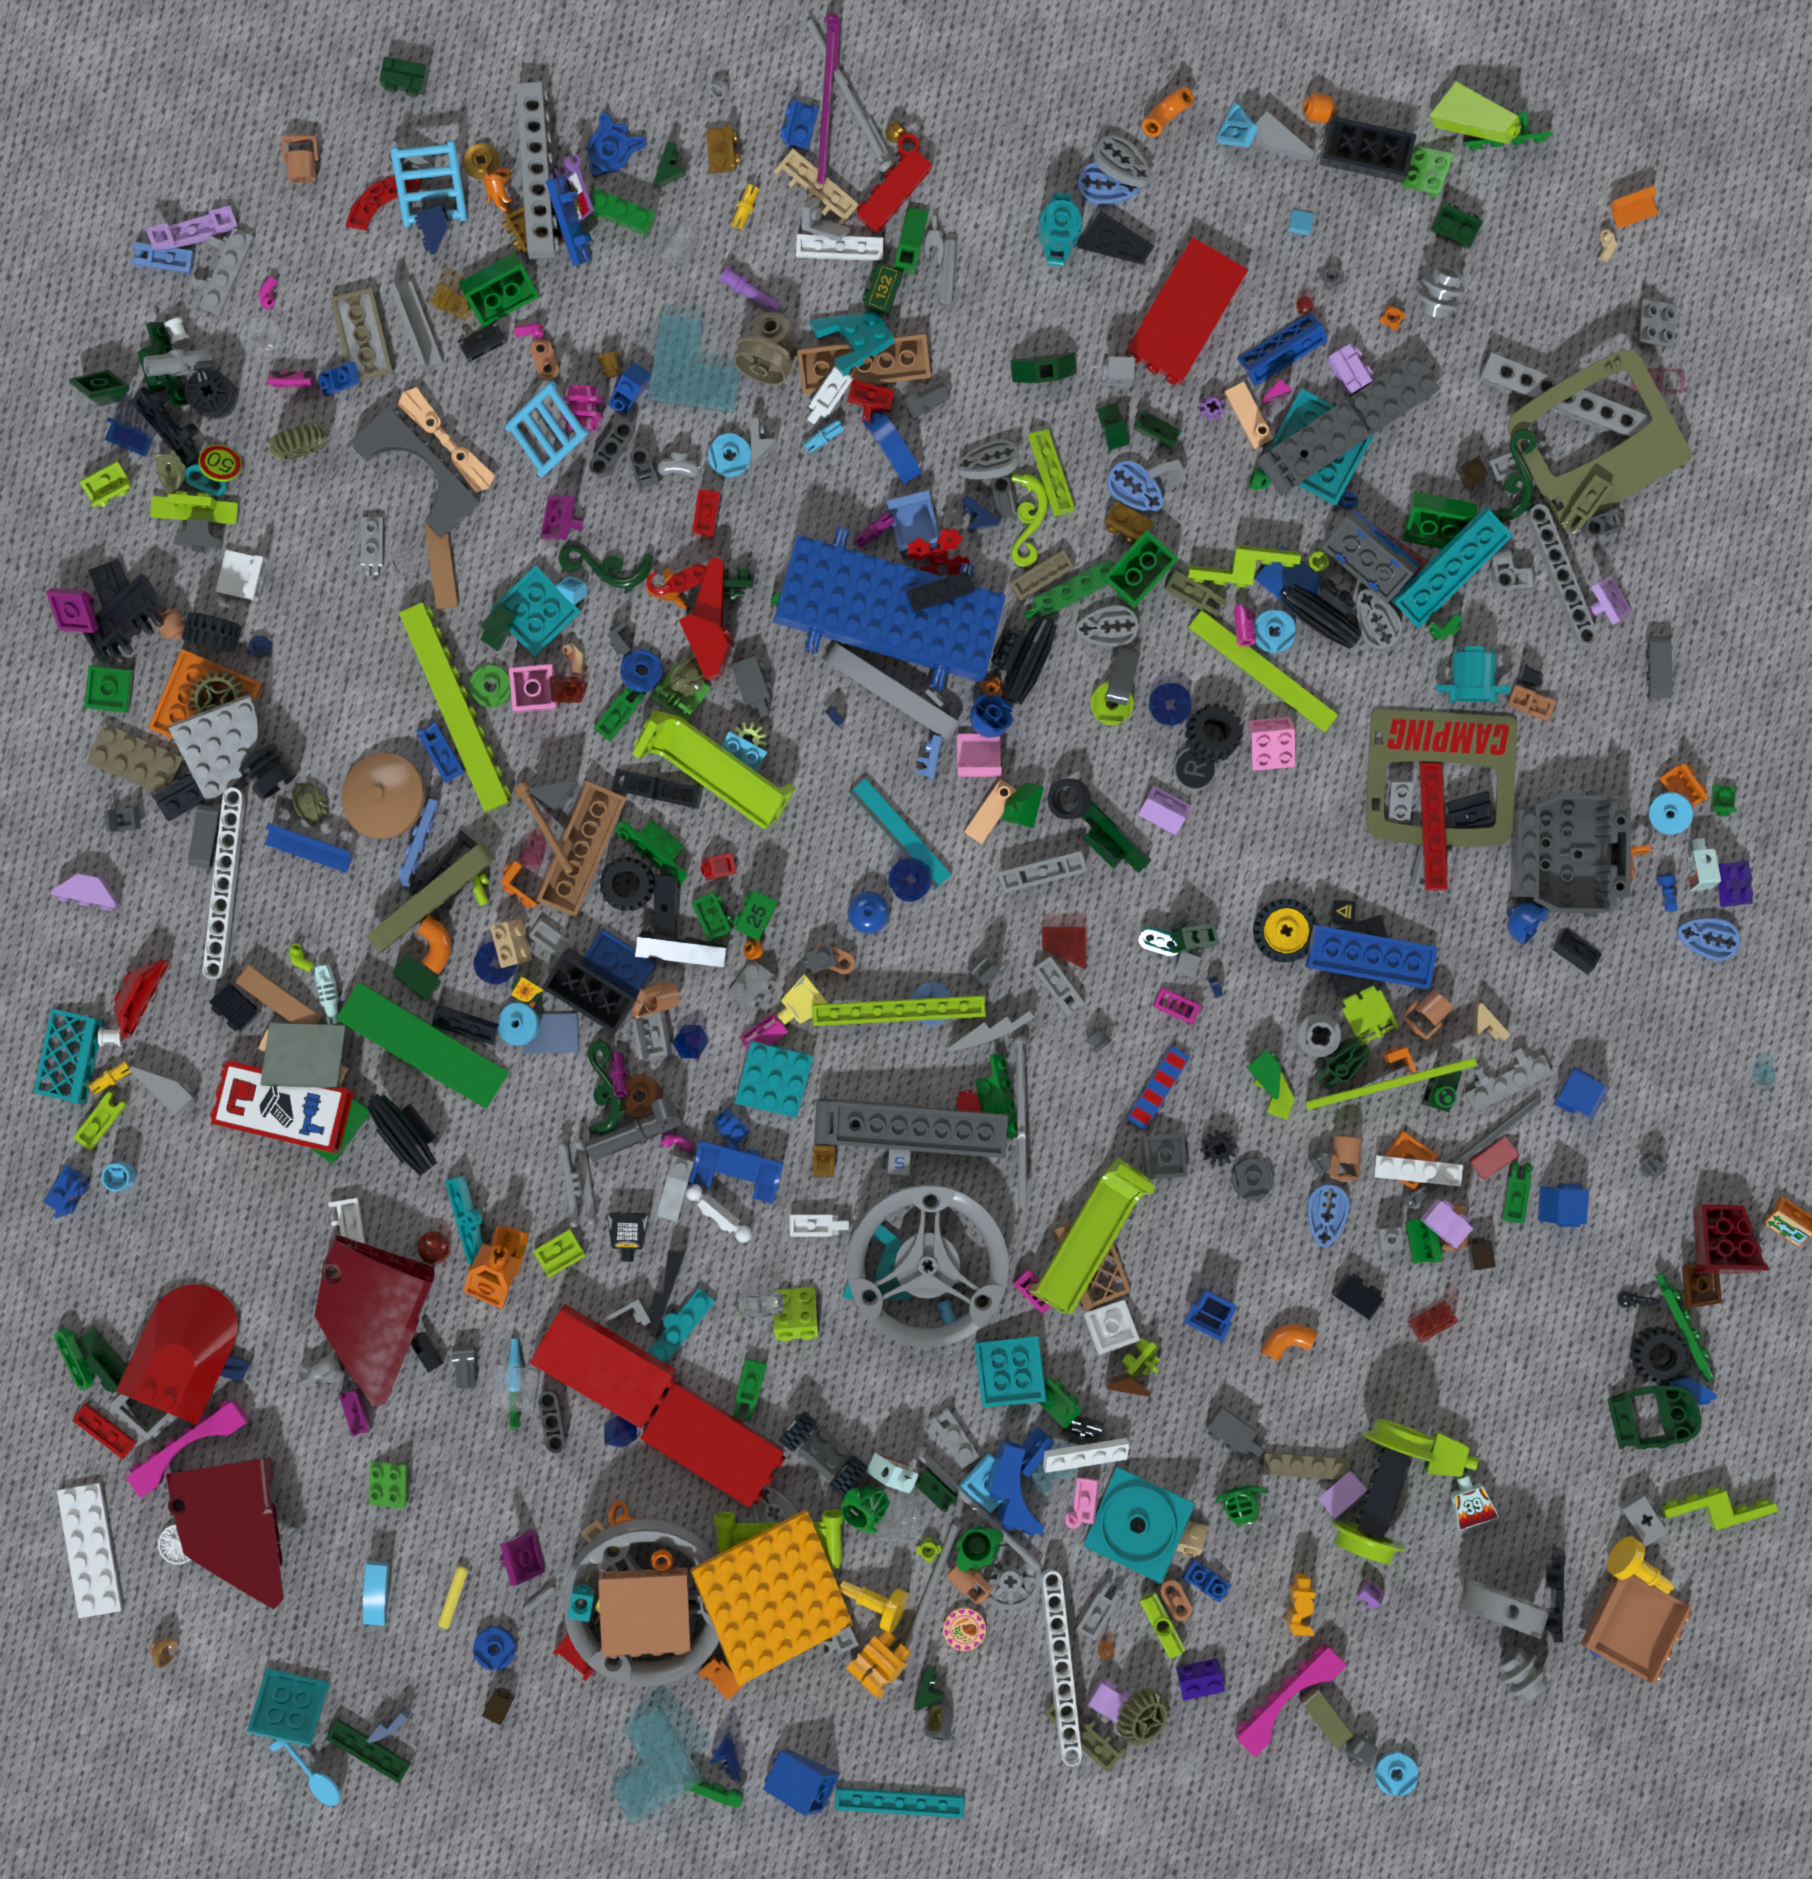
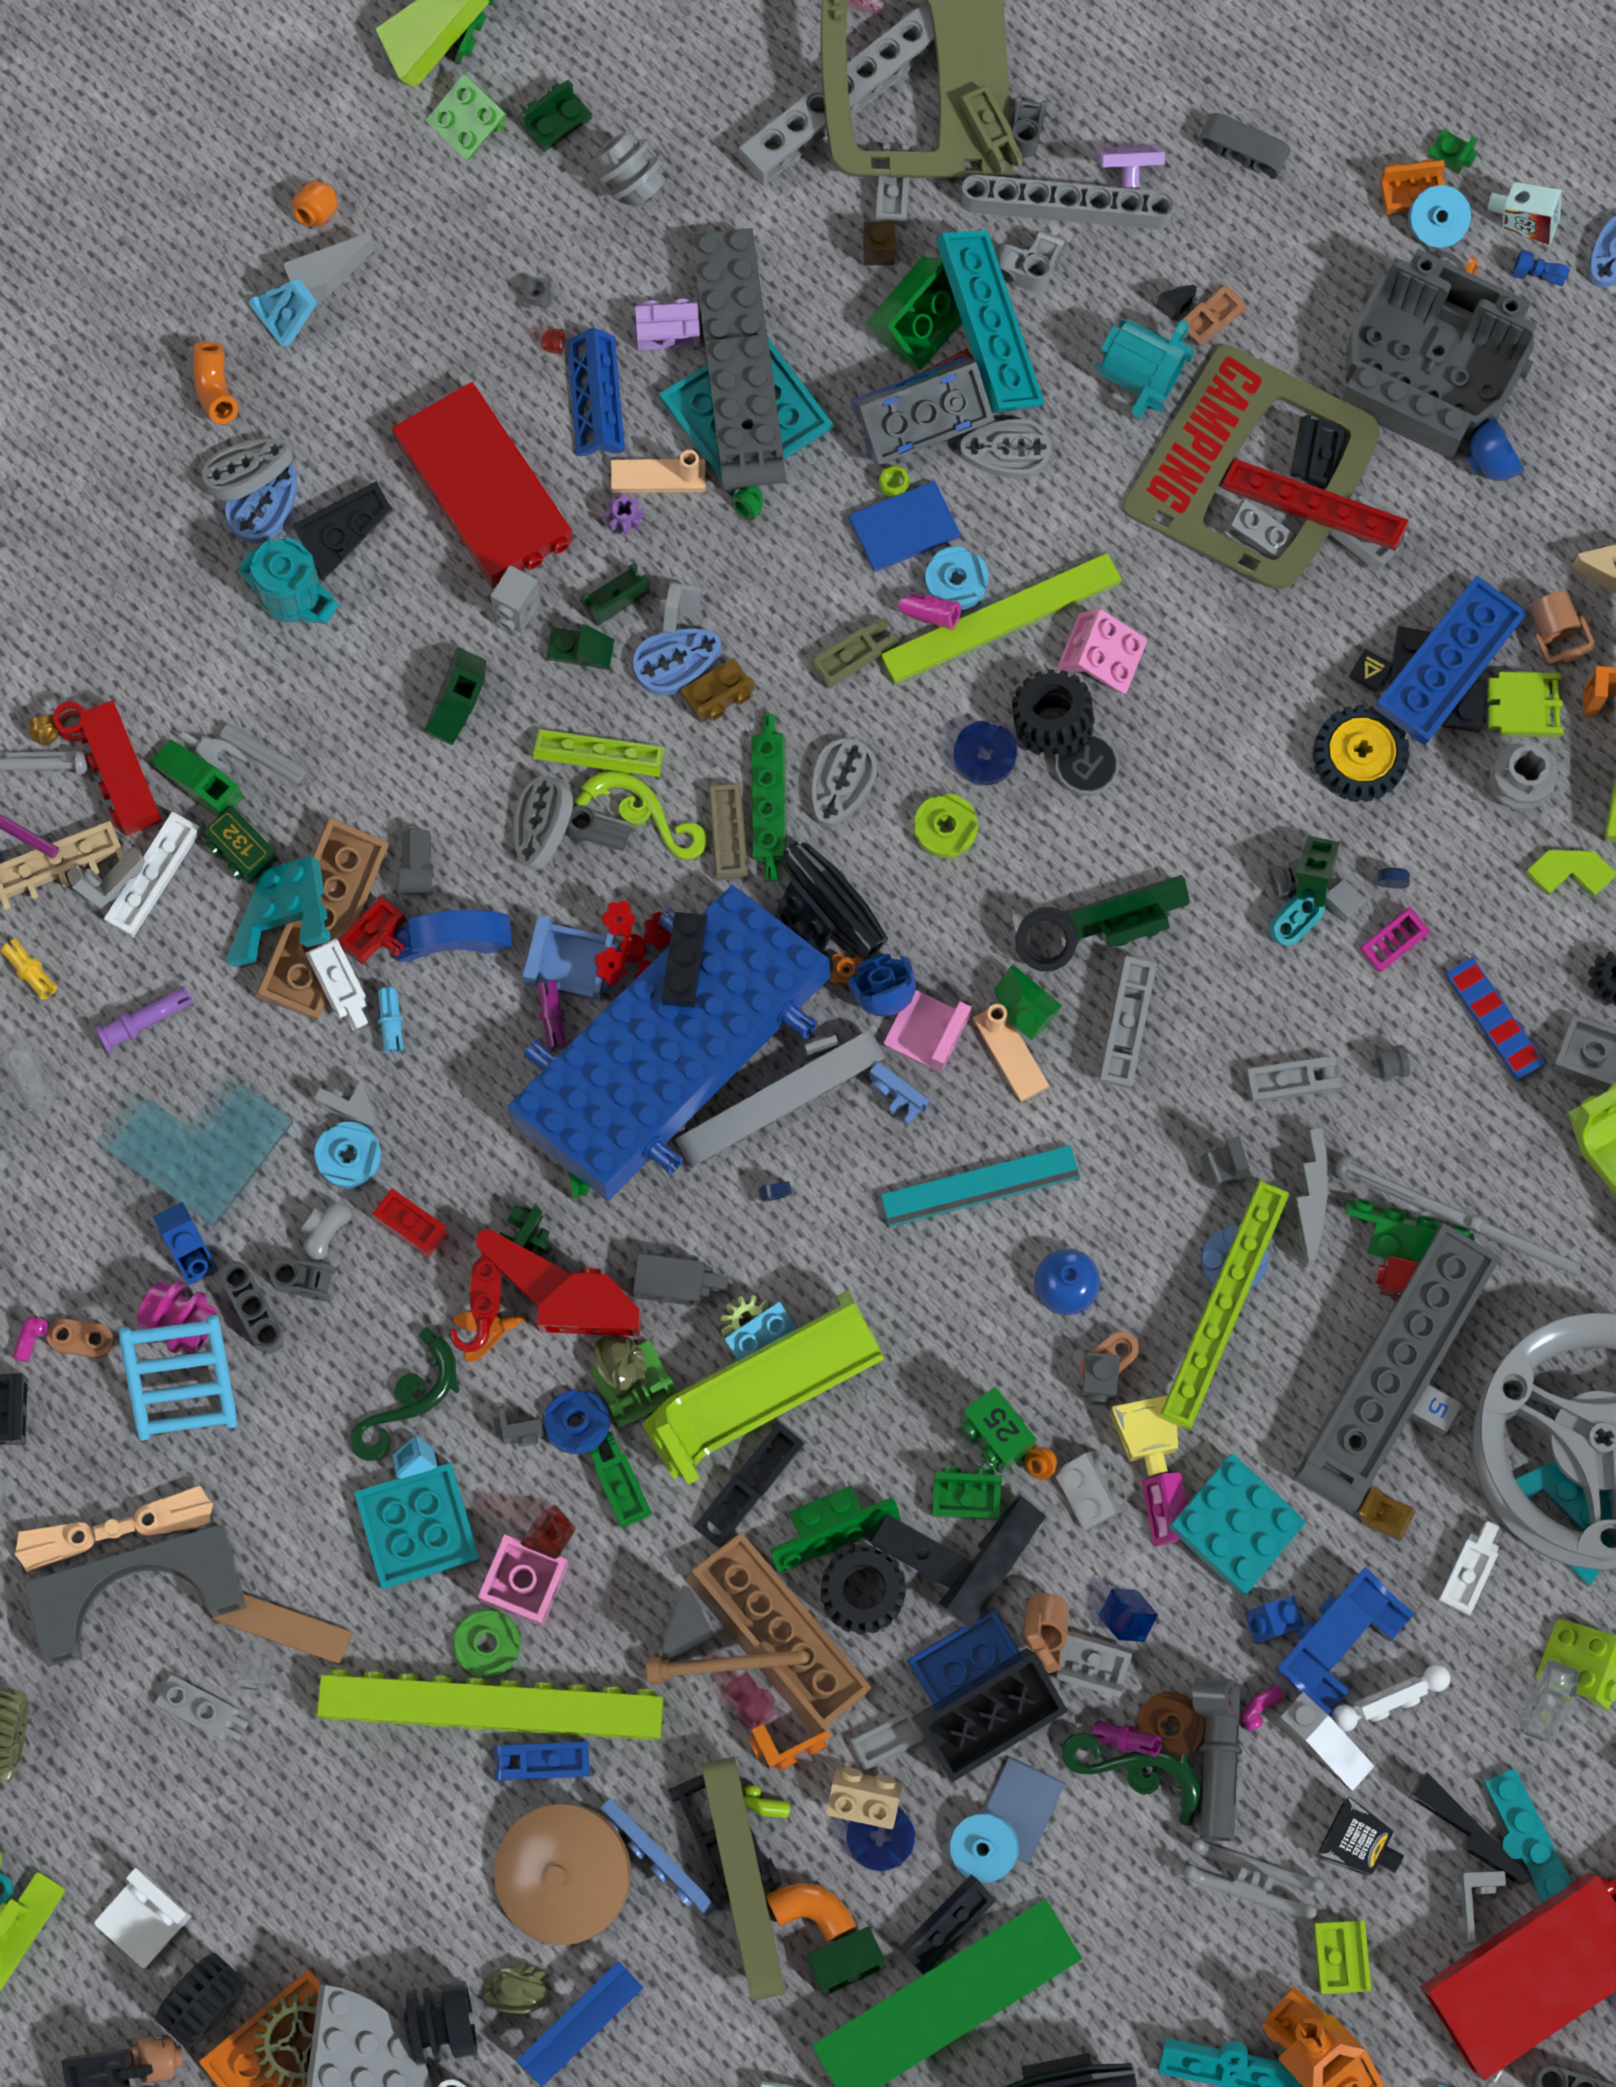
camera: 65 degrees left, 15 degrees down
(198, 536) = (53, 1952): dark grey brick -> none
(259, 646) = (256, 1946): dark blue tile -> none
(498, 626) = (411, 1586): dark green slope -> none
(527, 991) = (944, 1810): brick -> none
(559, 518) = (307, 1425): magenta tile -> none
(575, 656) = (507, 1503): tan arm -> none
(609, 364) = (136, 1252): pearl gold brick -> none
(718, 866) = (901, 1454): red bracket -> none
(768, 352) = (241, 1031): dark tan piece -> none
(900, 886) = (1069, 1198): clear blue plate -> none
(984, 517) = (610, 865): dark blue slope -> none
(1066, 943) = (1239, 1041): clear red wing -> none
(1122, 676) = (918, 790): dark grey beam -> none
(1140, 569) = (790, 699): green slope -> none
(1164, 810) = (1123, 828): lavender panel -> none
(1243, 565) = (851, 572): lime bracket -> none
(1267, 1072) = (1543, 865): green slope -> none
(1277, 392) = (649, 421): dark pink slope -> none
(1300, 222) = (446, 296): medium azure slope -> none
(1324, 610) = (964, 500): black plate -> none
(1343, 1062) = (1576, 763): dark green hinge -> none
(1348, 504) = (838, 411): blue hinge -> none
(1367, 149) = (400, 170): black brick -> none
(1398, 316) = (626, 238): orange plate -> none
(1450, 627) = (1064, 365): green bracket -> none
(1524, 476) = (916, 204): dark green plant -> none
(1577, 952) = (1565, 413): black slope -> none
(1735, 884) = (1577, 186): dark purple plate -> none

